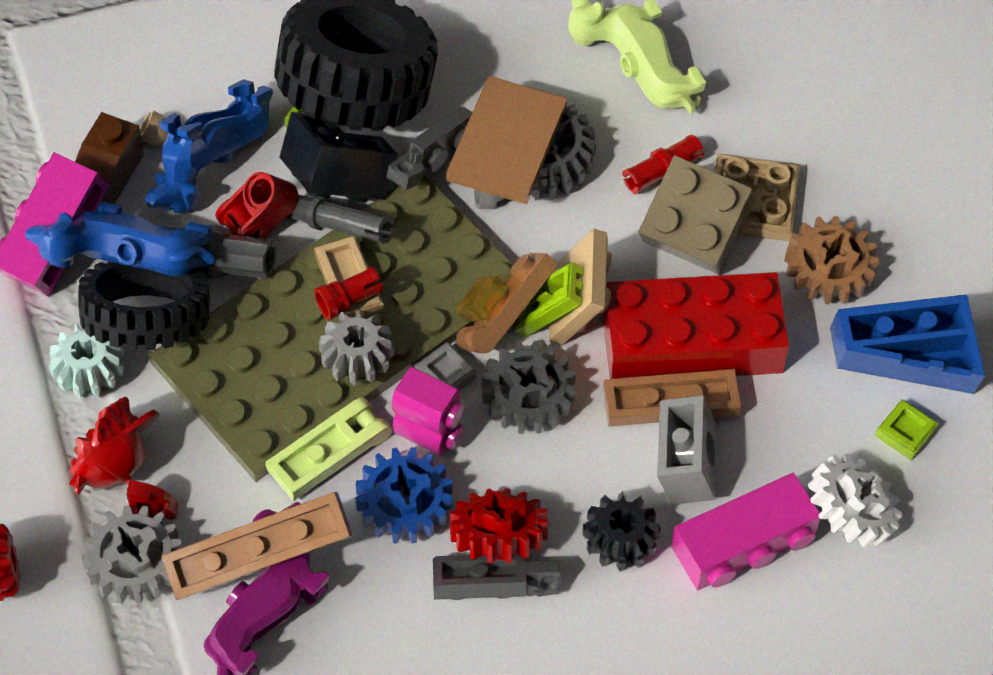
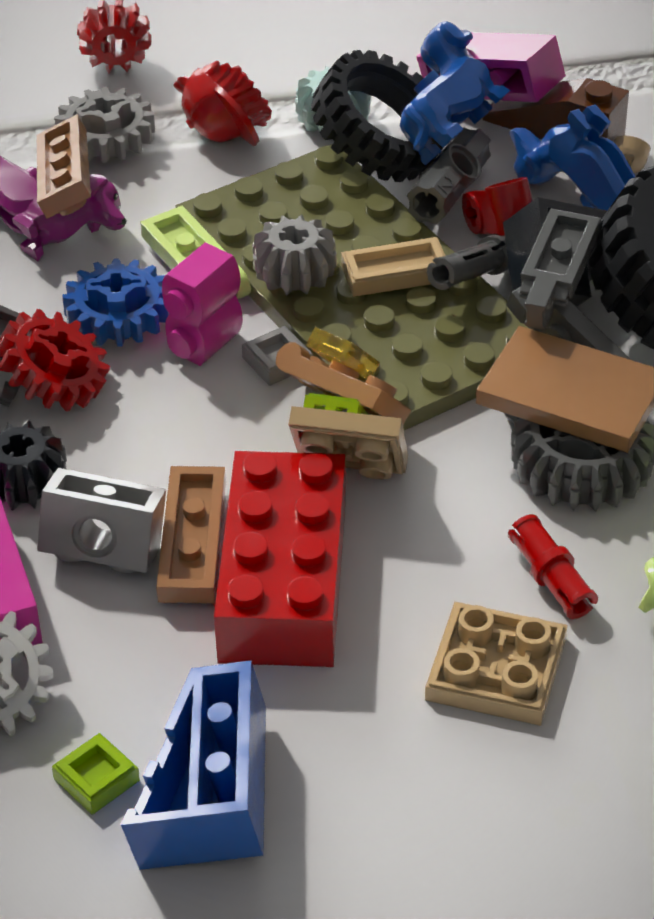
camera: 100 degrees right, 15 degrees down
(154, 497) = (166, 142): red tile -> none
(340, 295) = (356, 235): red pin -> none
(395, 135) = (556, 263): none -> dark grey hinge
(530, 391) = (231, 407): dark grey gear -> none
(697, 215) = (444, 563): dark tan brick -> none
(831, 260) = (370, 717): medium nougat gear -> none

